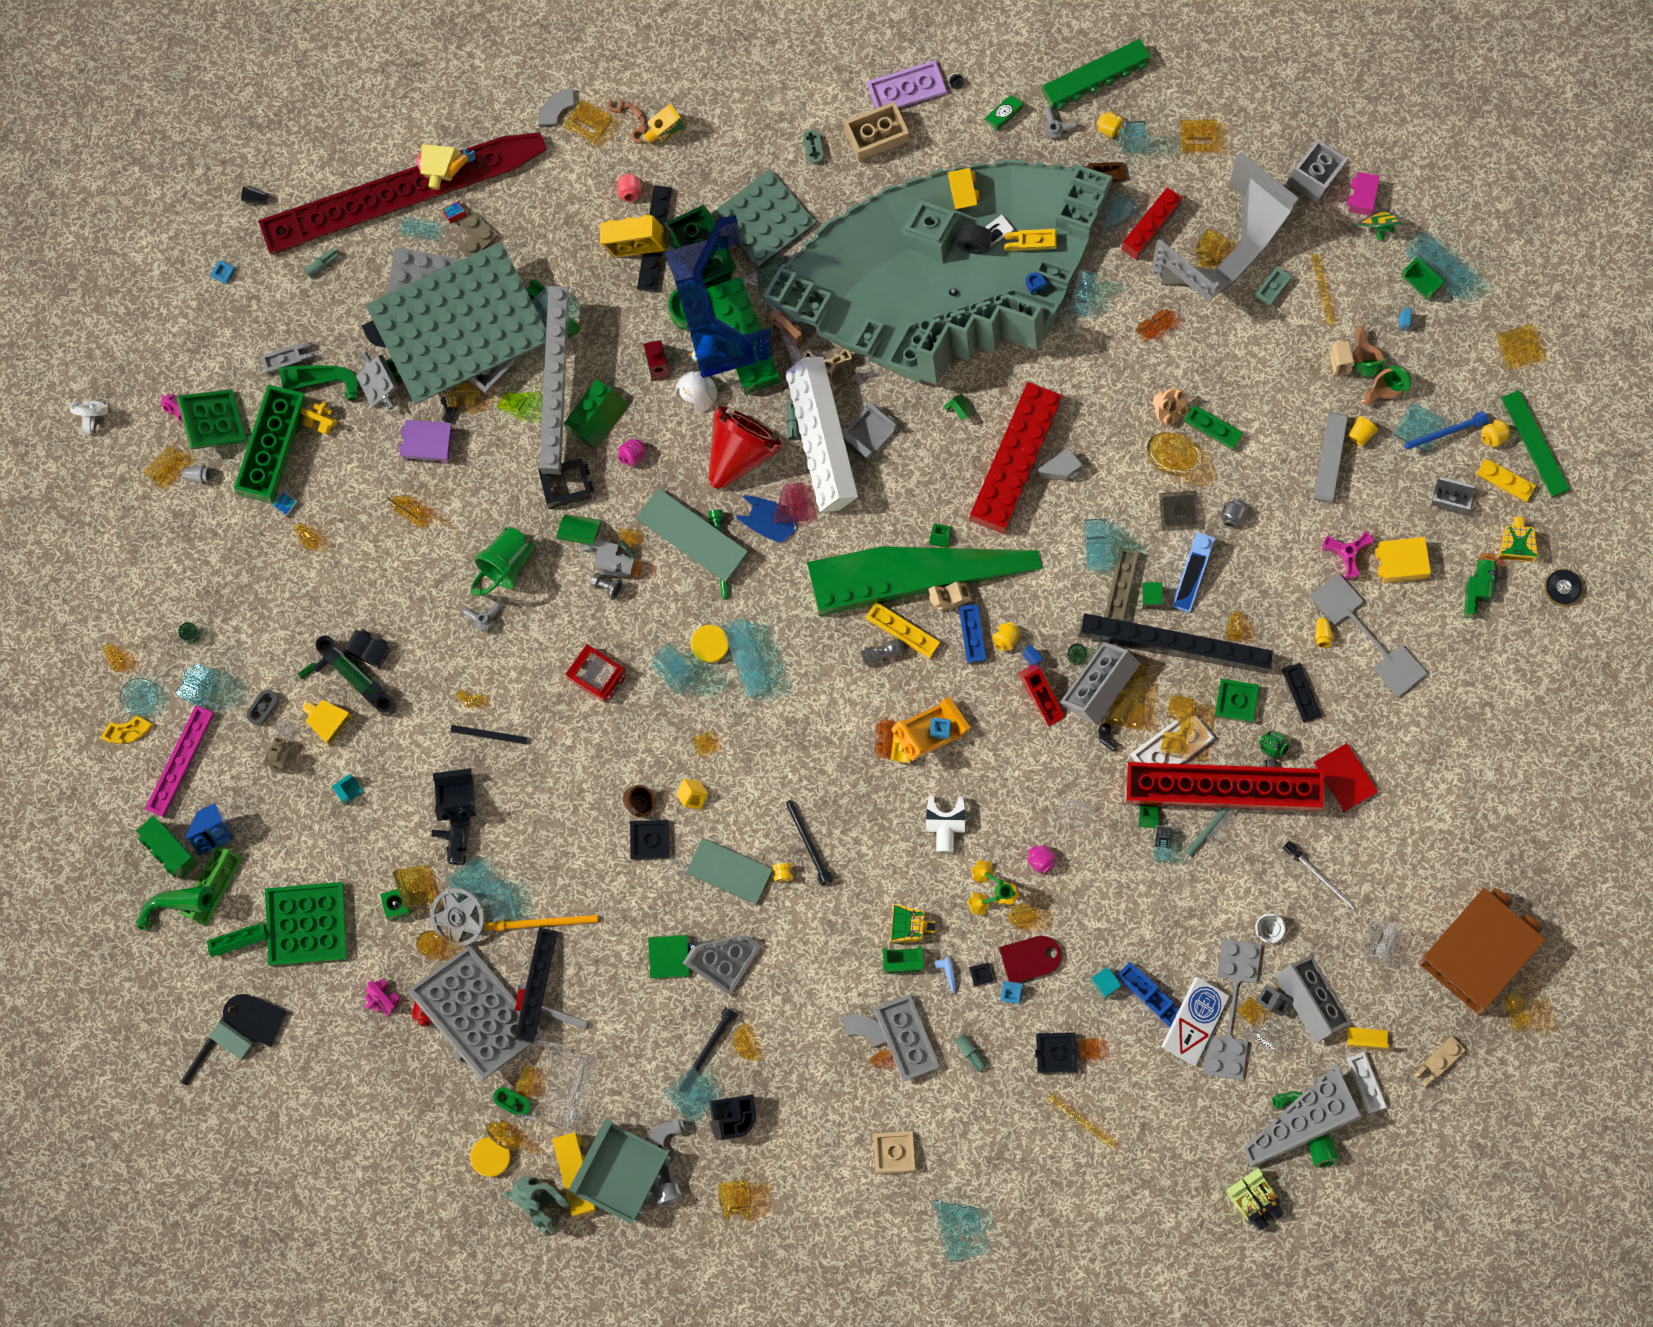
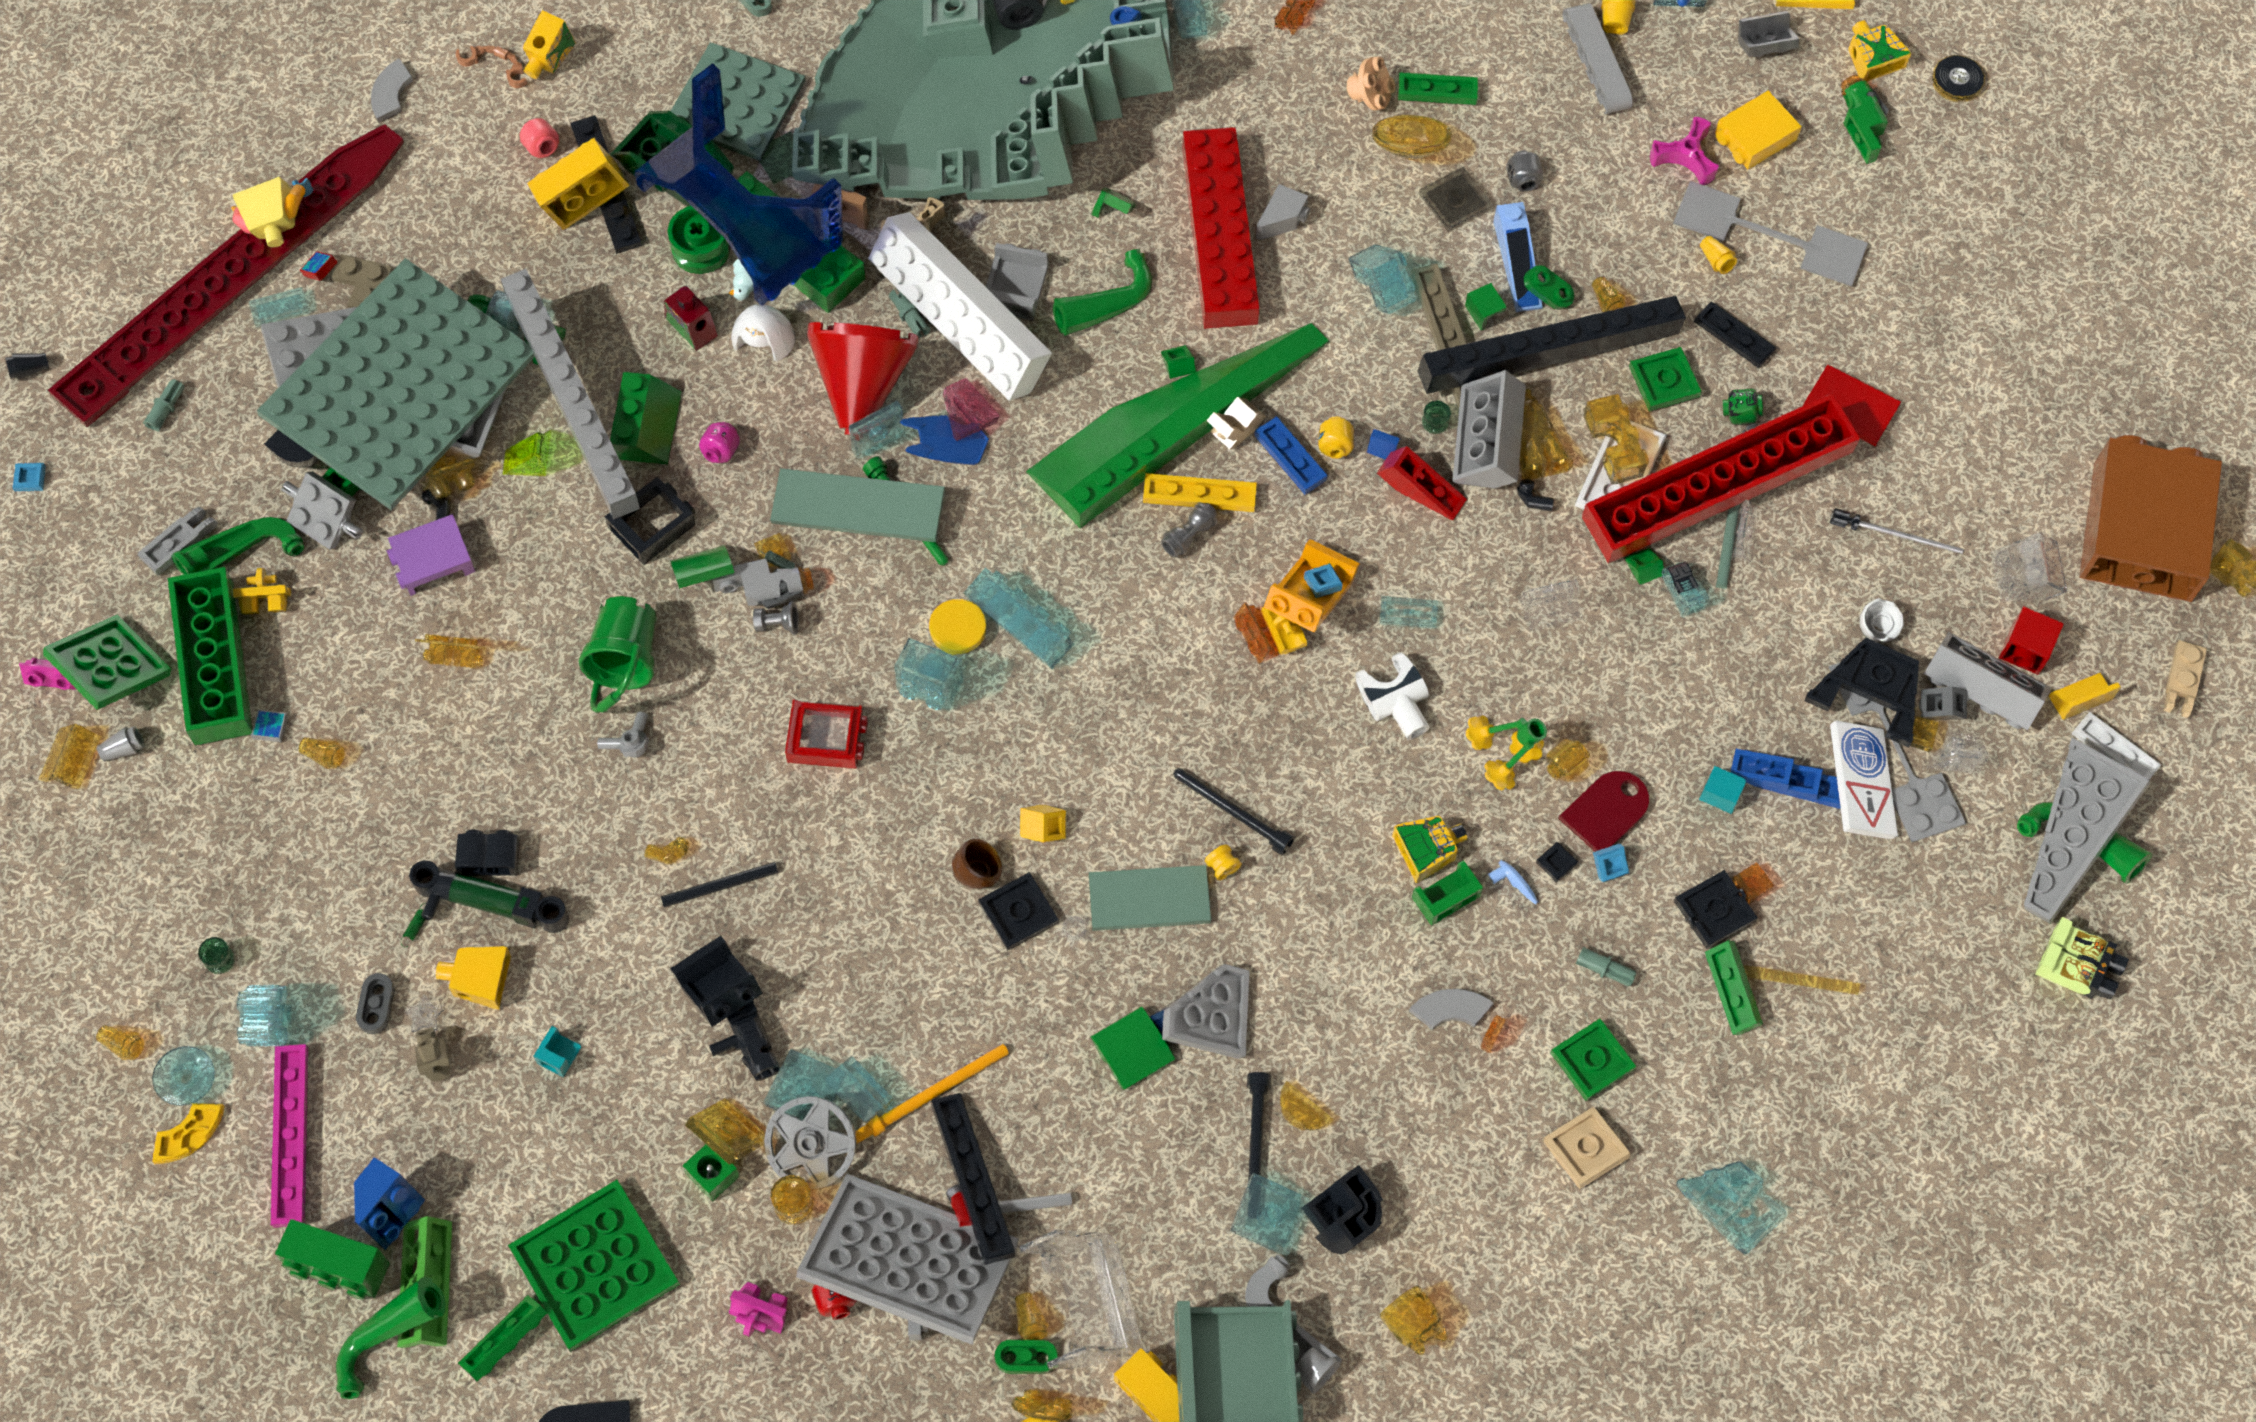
camera: 35 degrees left, 10 degrees down
(591, 117) = (442, 81): clear yellow plate -> none
(704, 743) = (1021, 754): clear yellow plate -> none
(727, 493) = (877, 430): none -> clear light blue plate
(902, 473) = (1087, 310): none -> green animal
(906, 1038) = (1512, 989): light grey plate -> none
(929, 1103) = (1593, 1059): none -> green plate
(971, 763) = (1408, 622): none -> clear light blue tile
(1037, 1105) = (1733, 988): none -> green plate
(1041, 859) = (1546, 679): dark pink head -> none
(1200, 603) = (1549, 289): none -> green plate
(1244, 962) = (1878, 676): none -> black wing
(1354, 989) = (2031, 640): none -> red head

